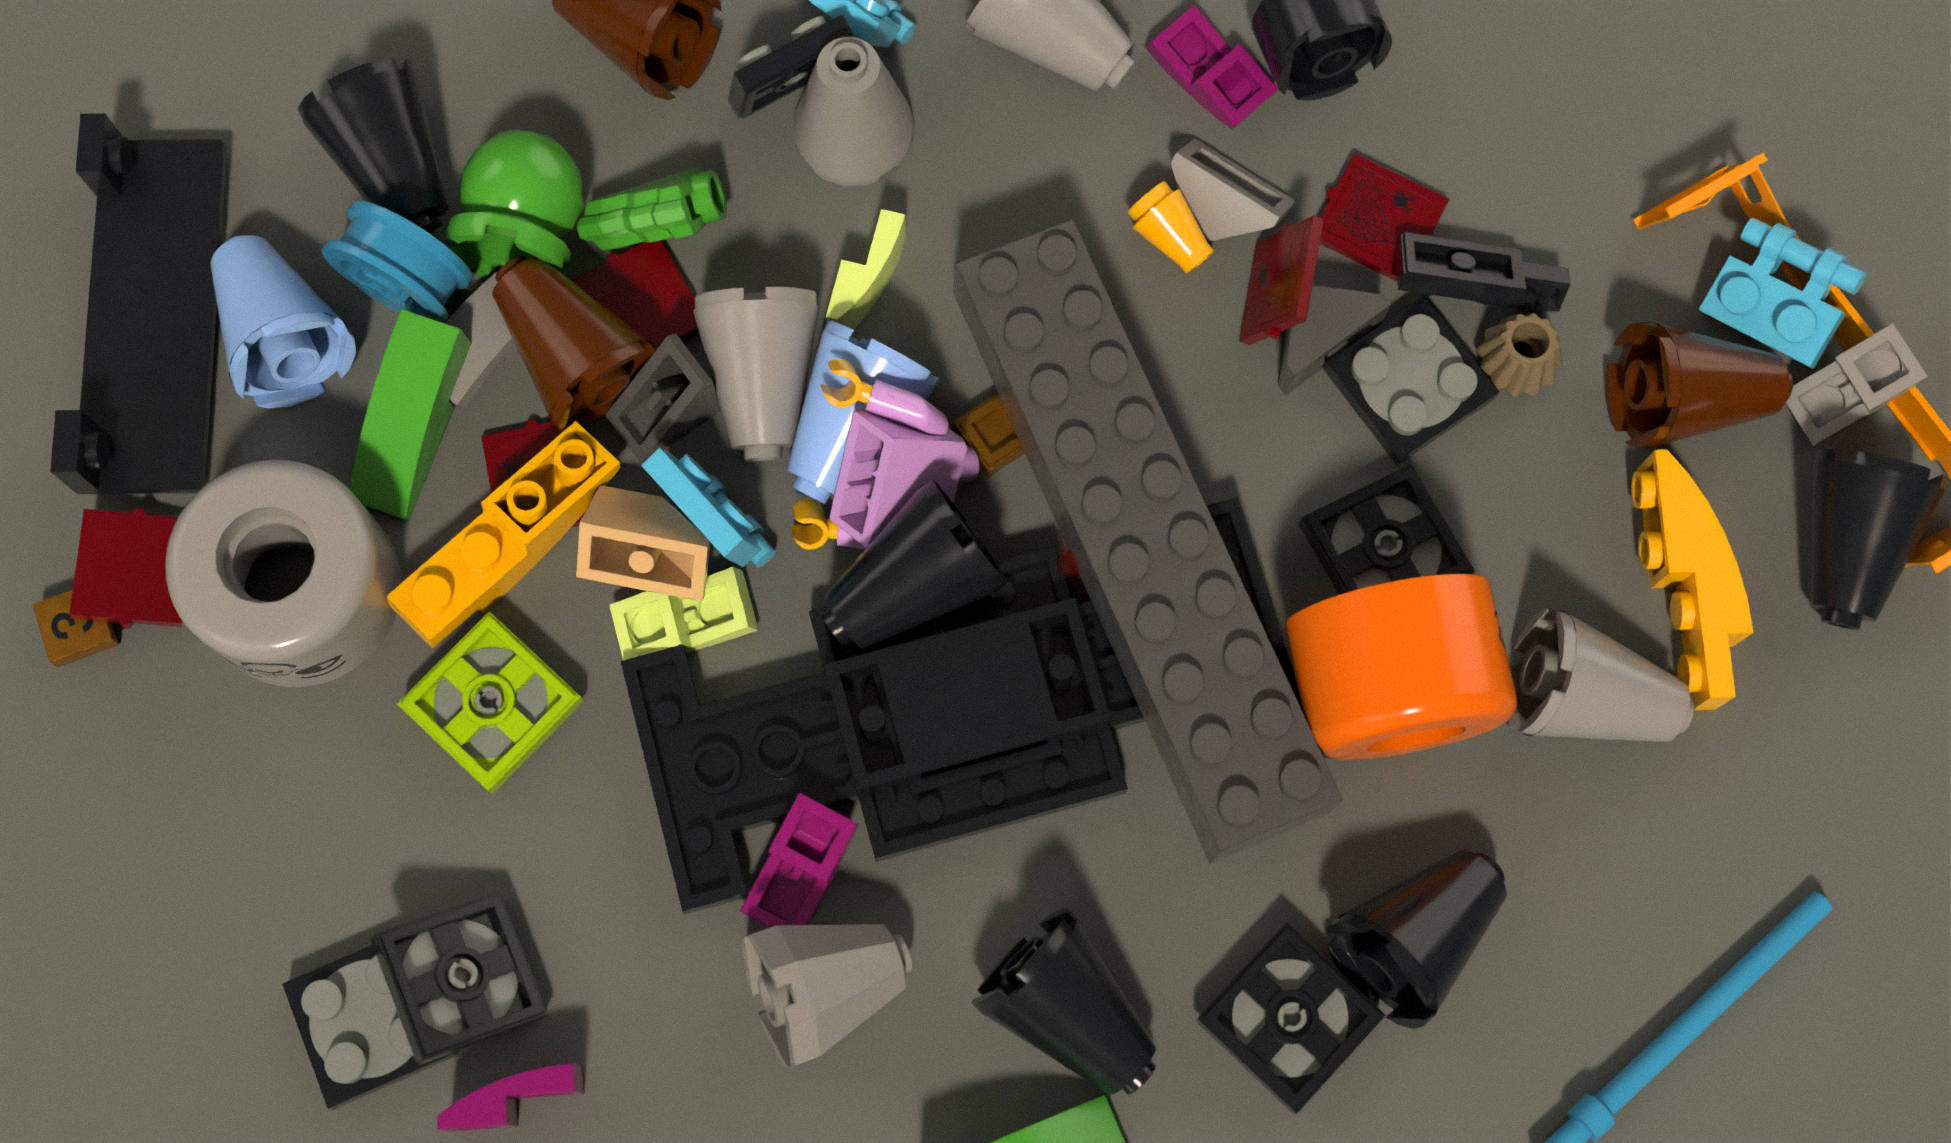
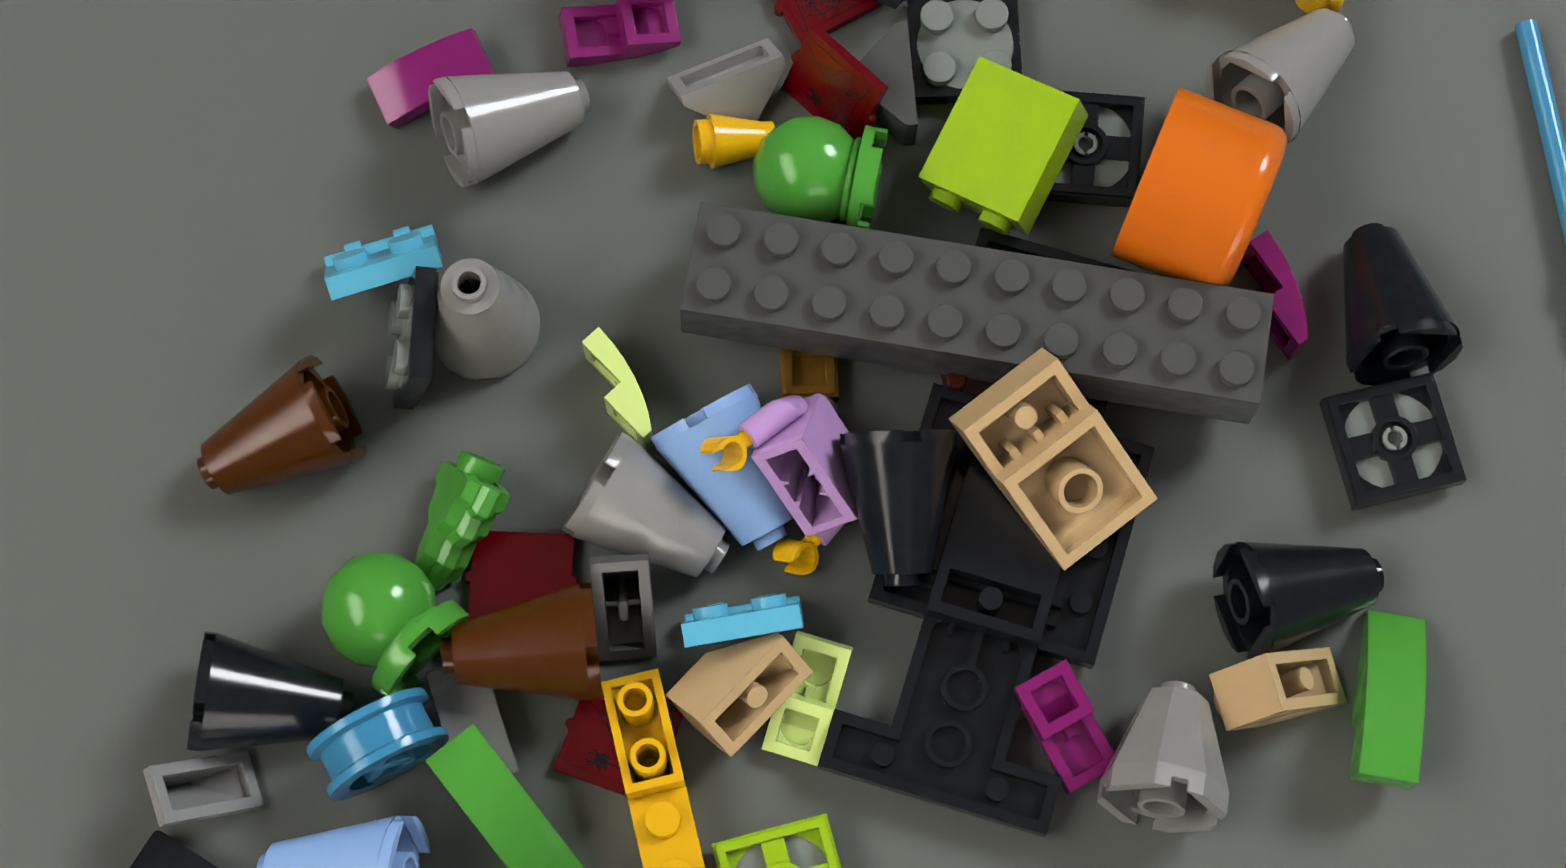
camera: 55 degrees left, 0 degrees up
(275, 150) = (203, 788): none -> light grey slope
(966, 1049) = (1276, 688): none -> tan slope
(1035, 687) = (1053, 457): none -> tan slope
(1185, 316) = (819, 170): none -> bright green tile
(1324, 465) = (1002, 147): none -> lime brick
(1352, 826) = (1274, 276): none -> magenta slope

